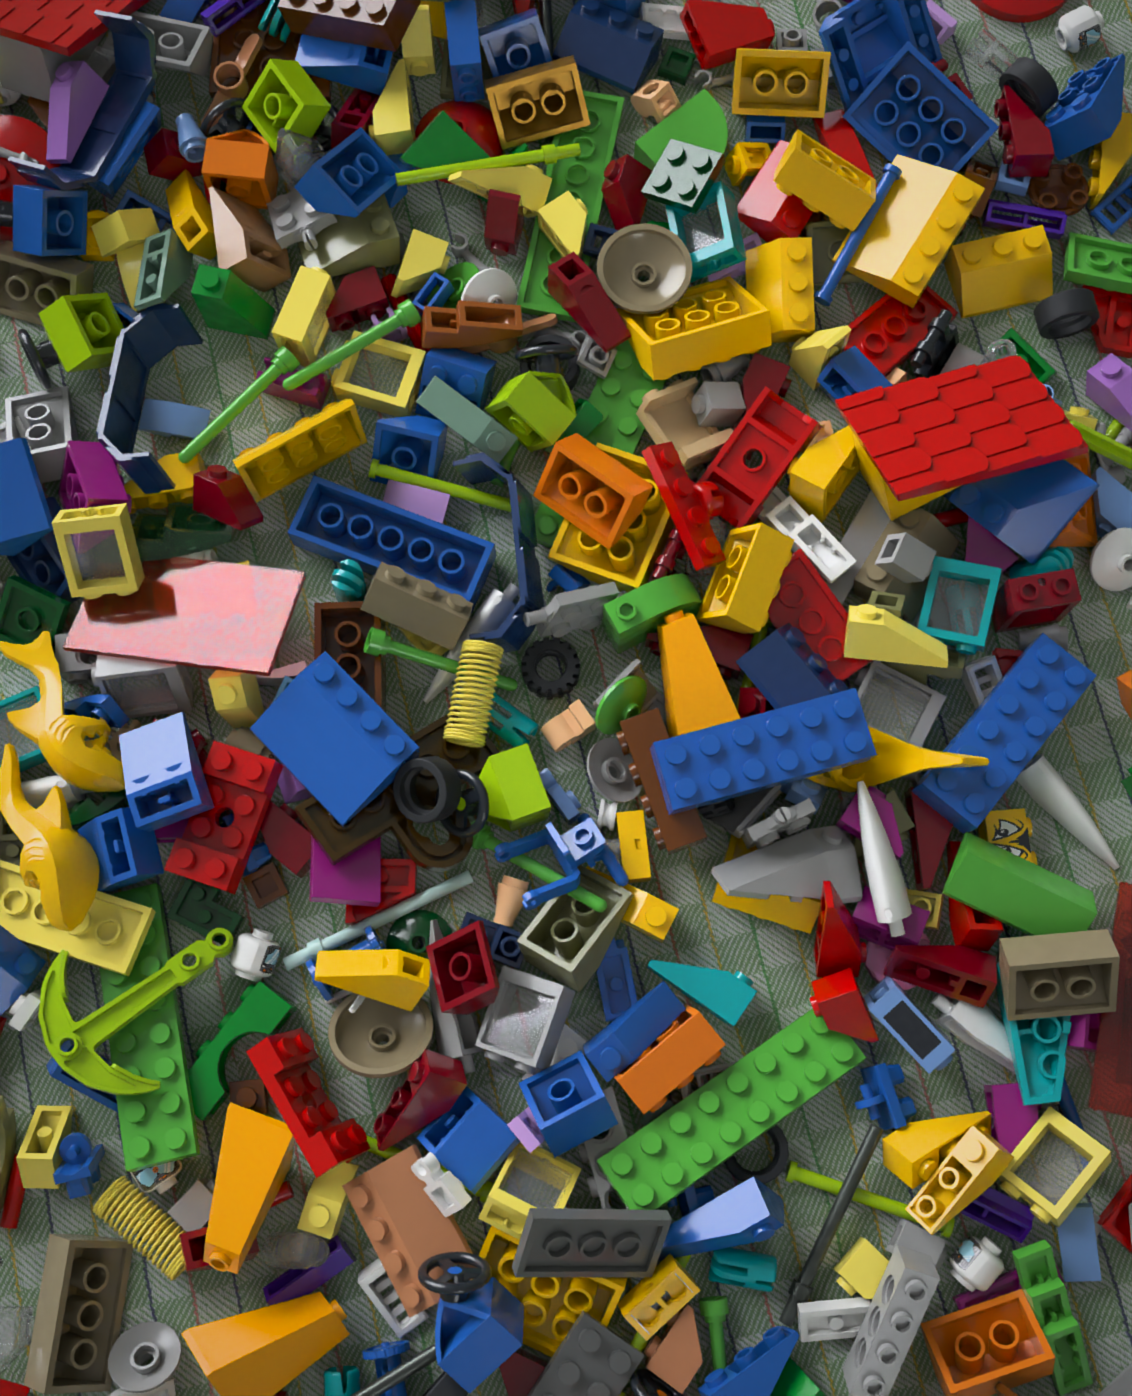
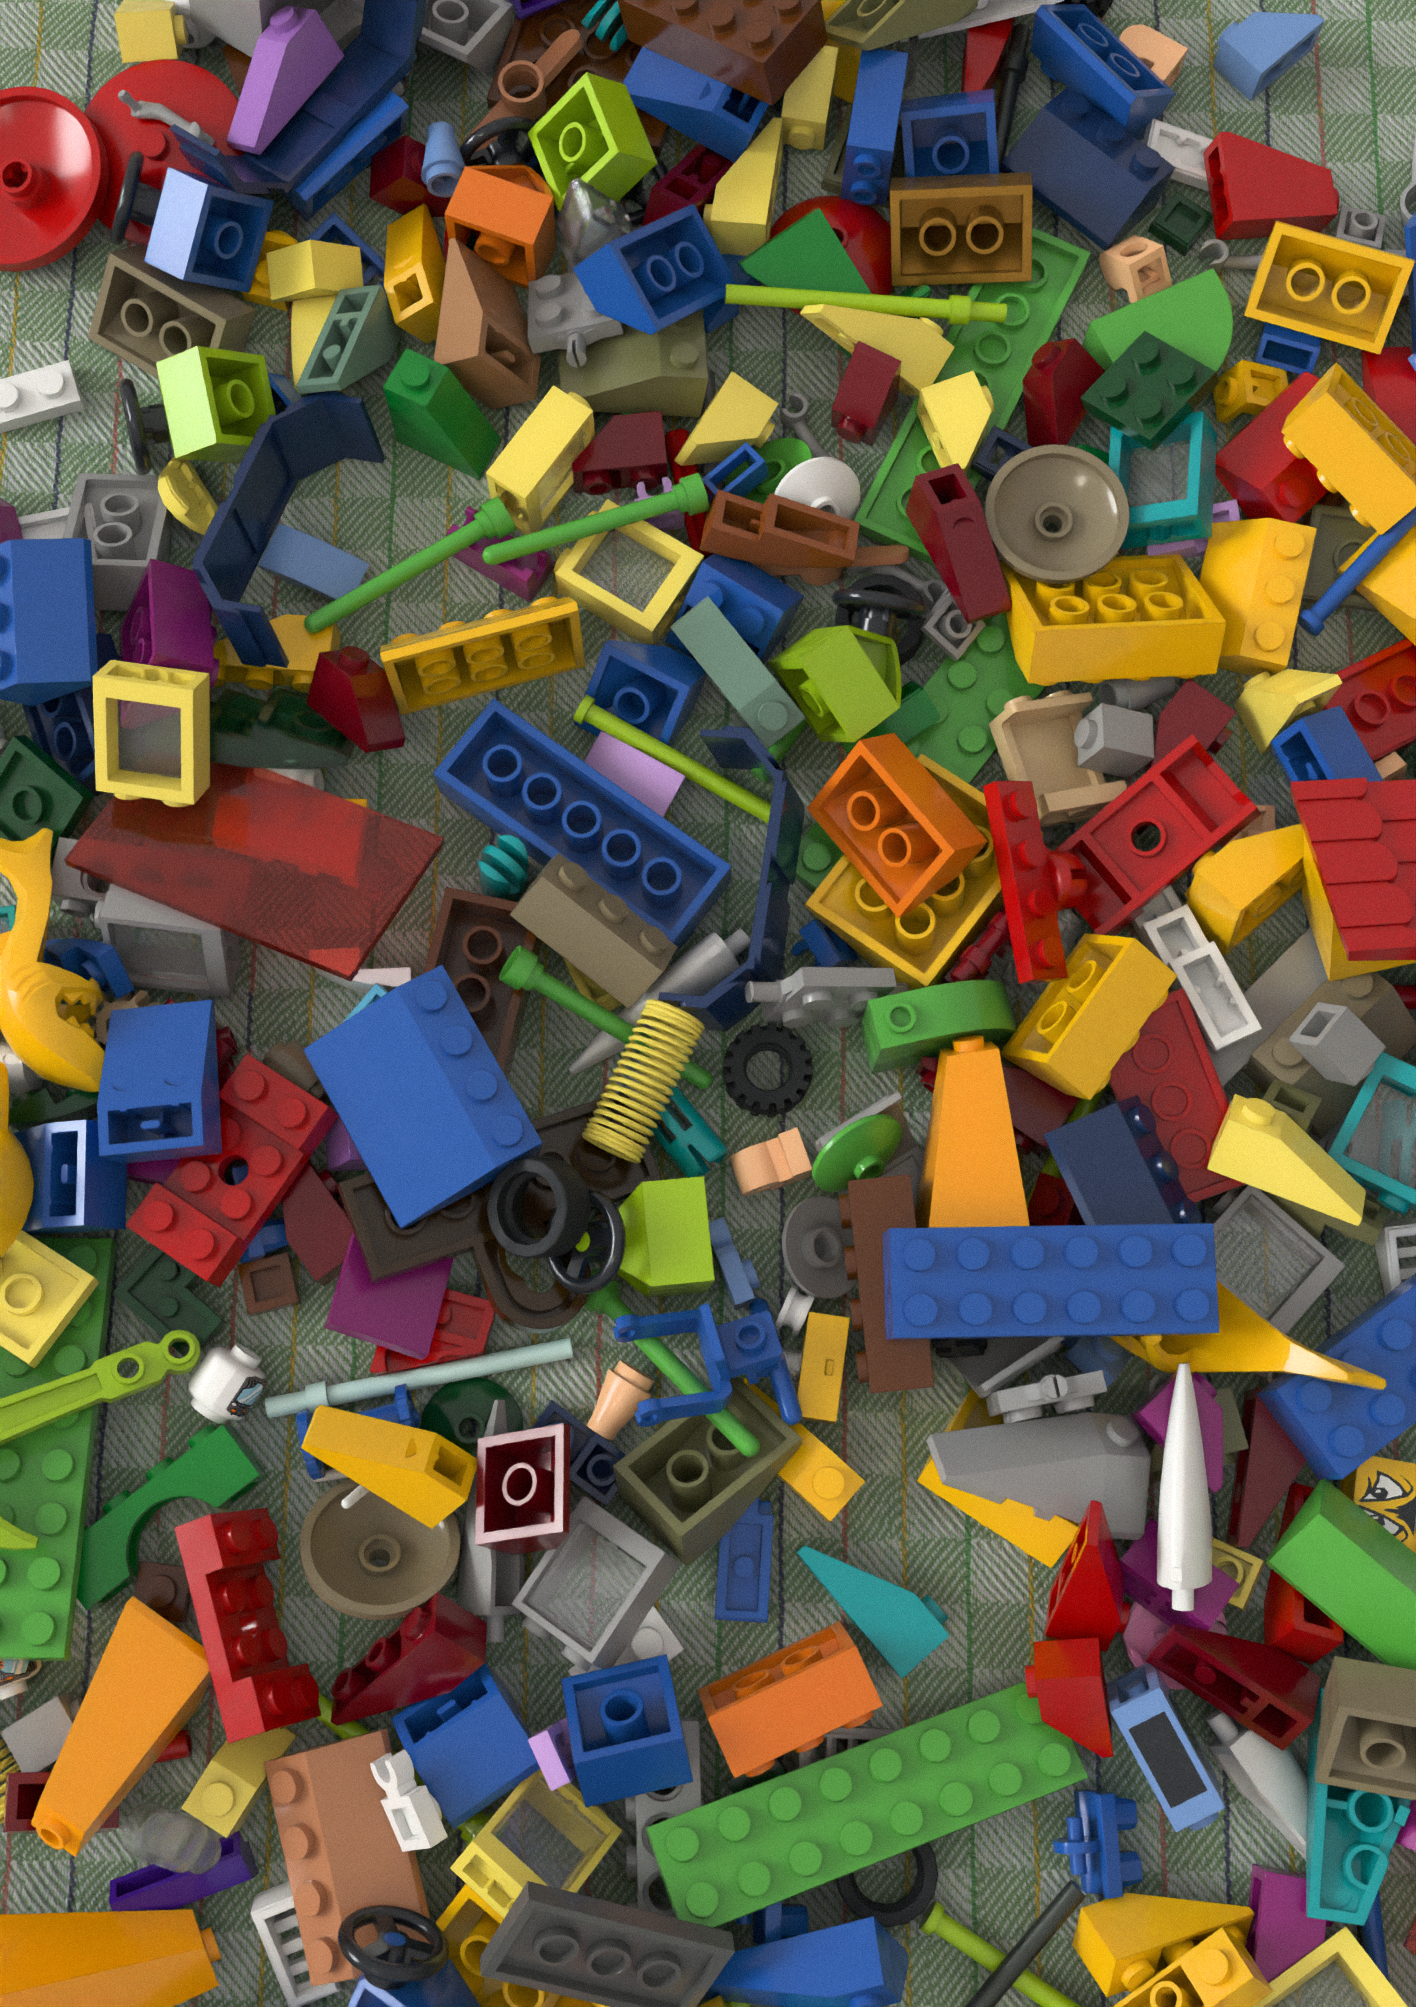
camera: 10 degrees right, 0 degrees up
(79, 395) = (186, 495): none -> light yellow tile
(236, 697) = (296, 998): light yellow slope -> none
(633, 1031) = (749, 1646): blue slope -> none

